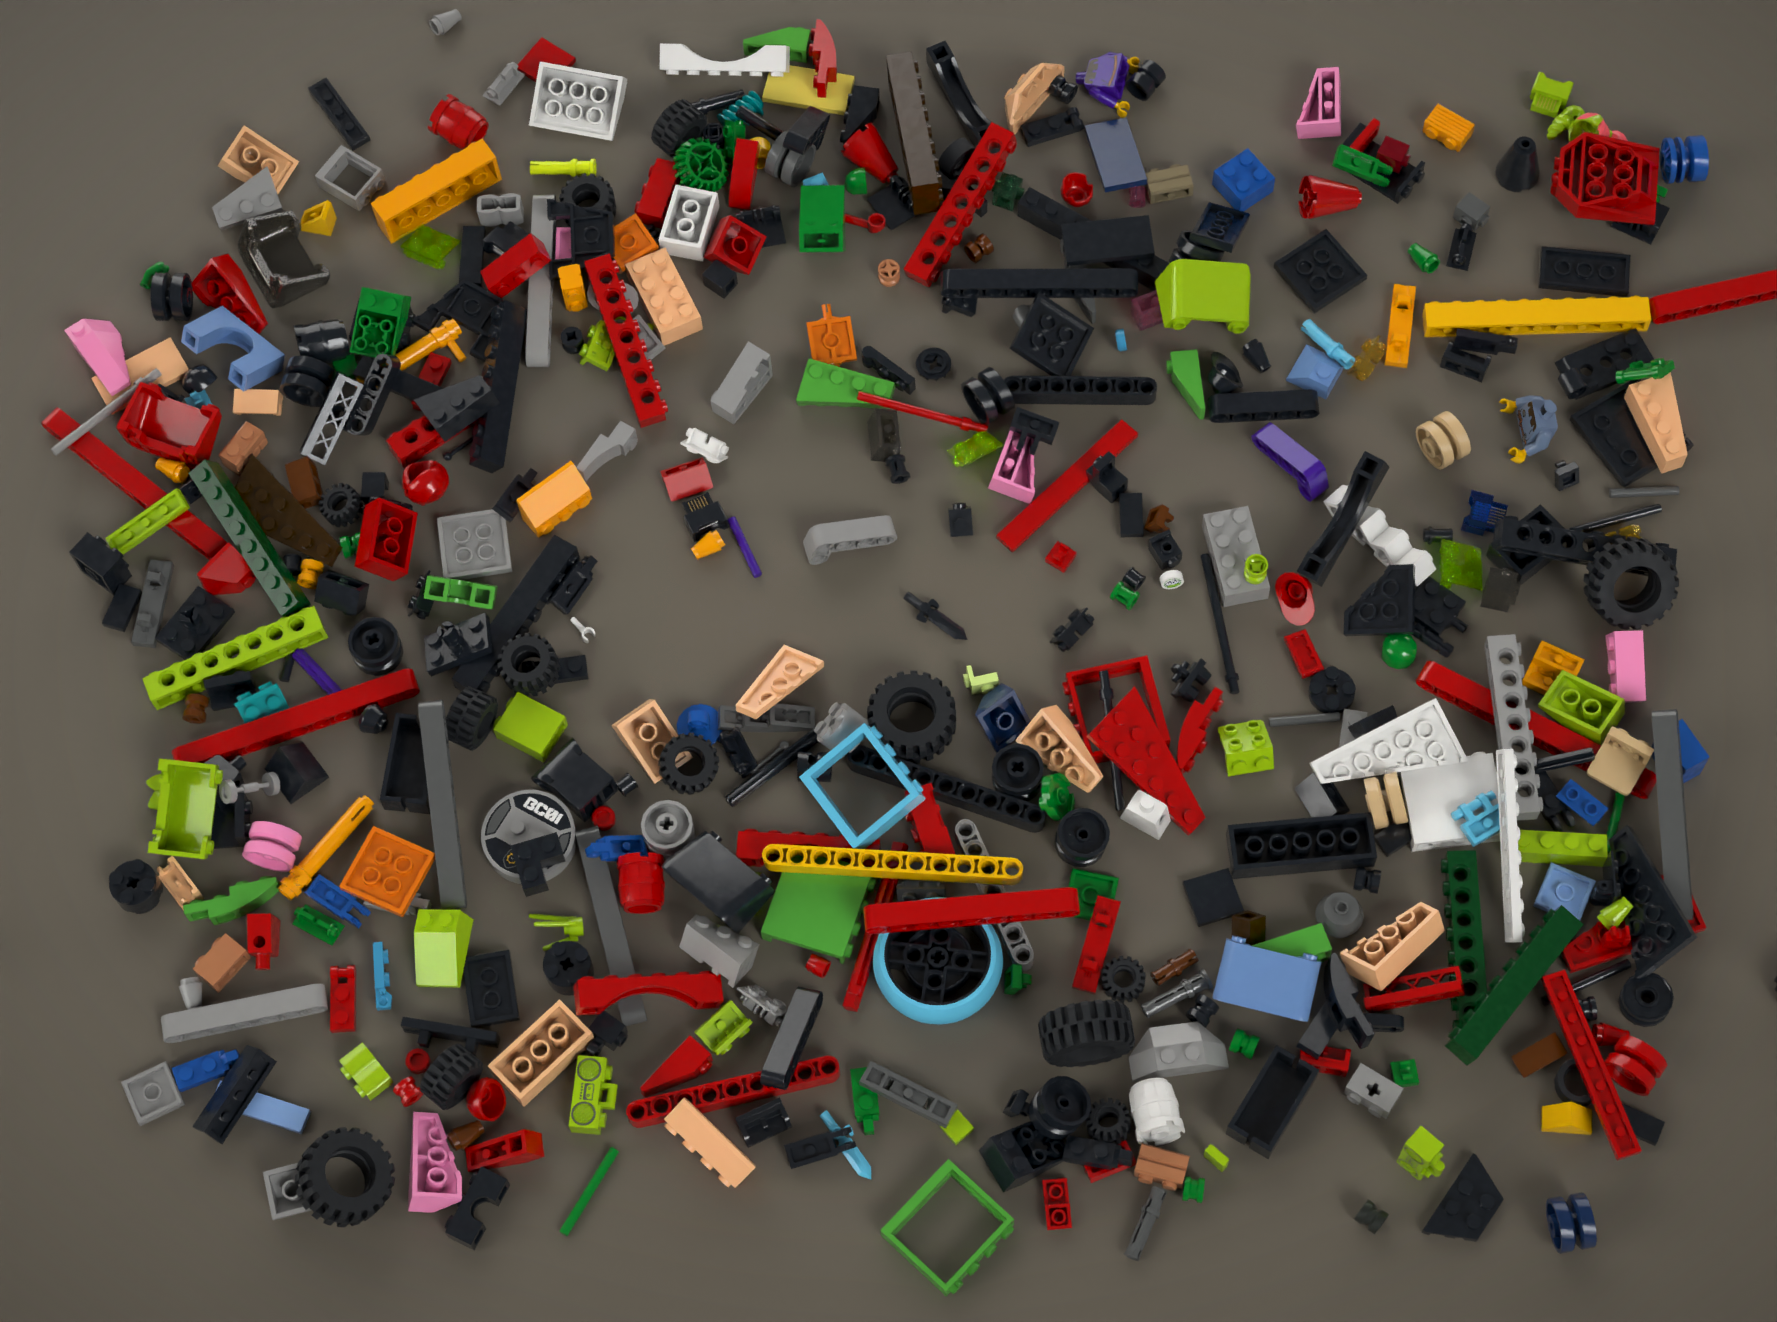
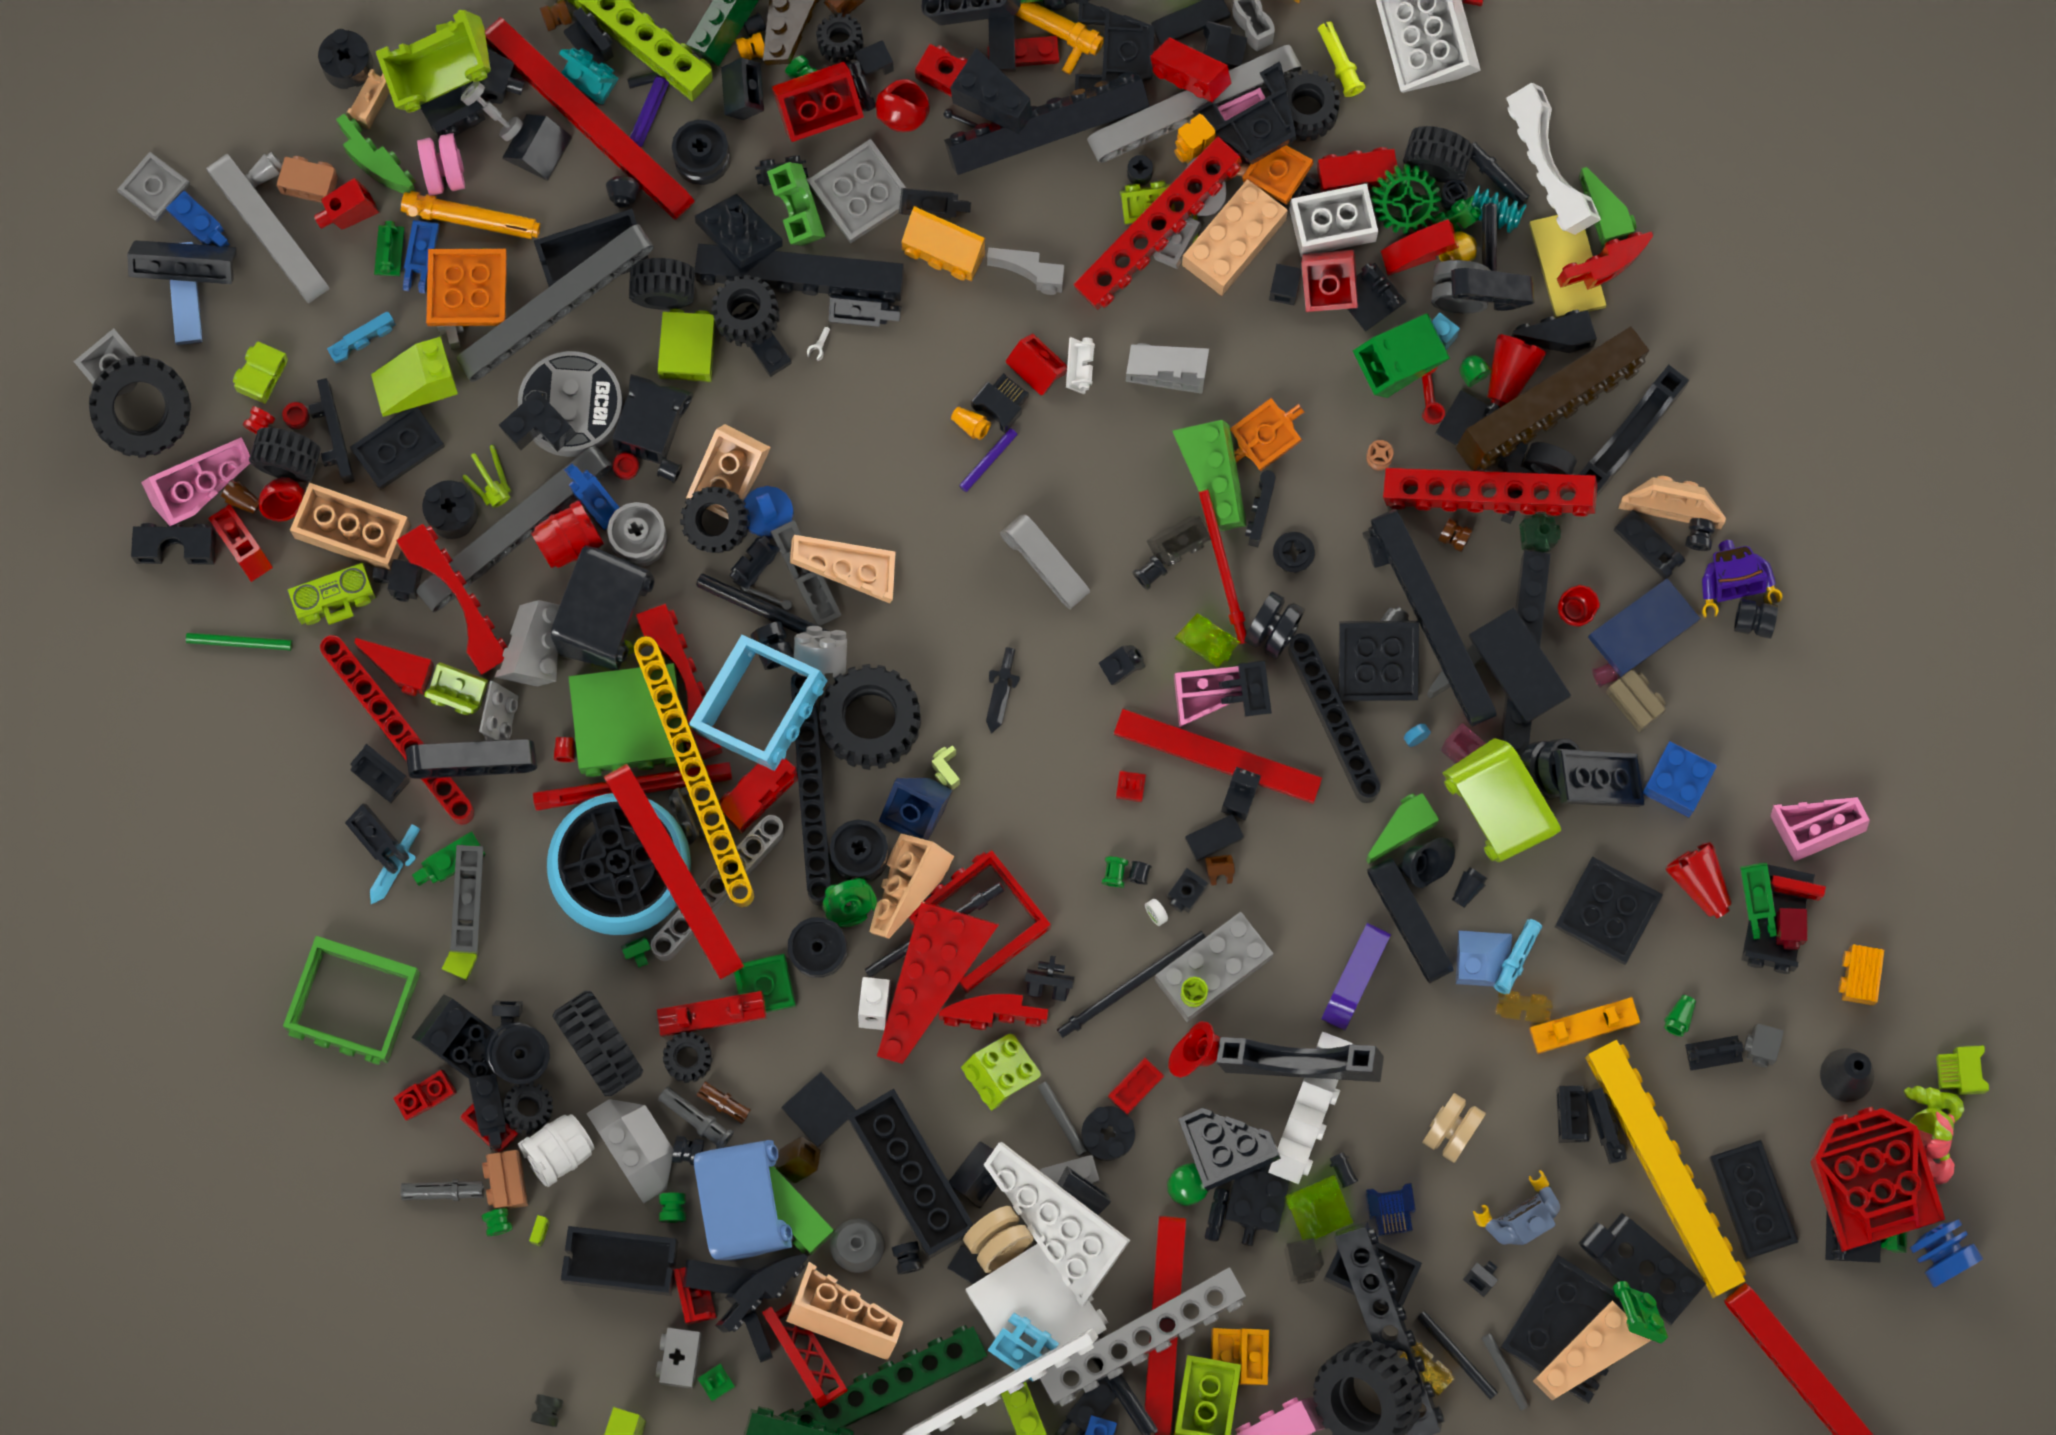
camera: 60 degrees right, 10 degrees up
(343, 999) = (325, 312): red plate -> none
(709, 1142) = (329, 731): light nougat slope -> none
(1065, 634) = (1042, 830): black hinge -> none

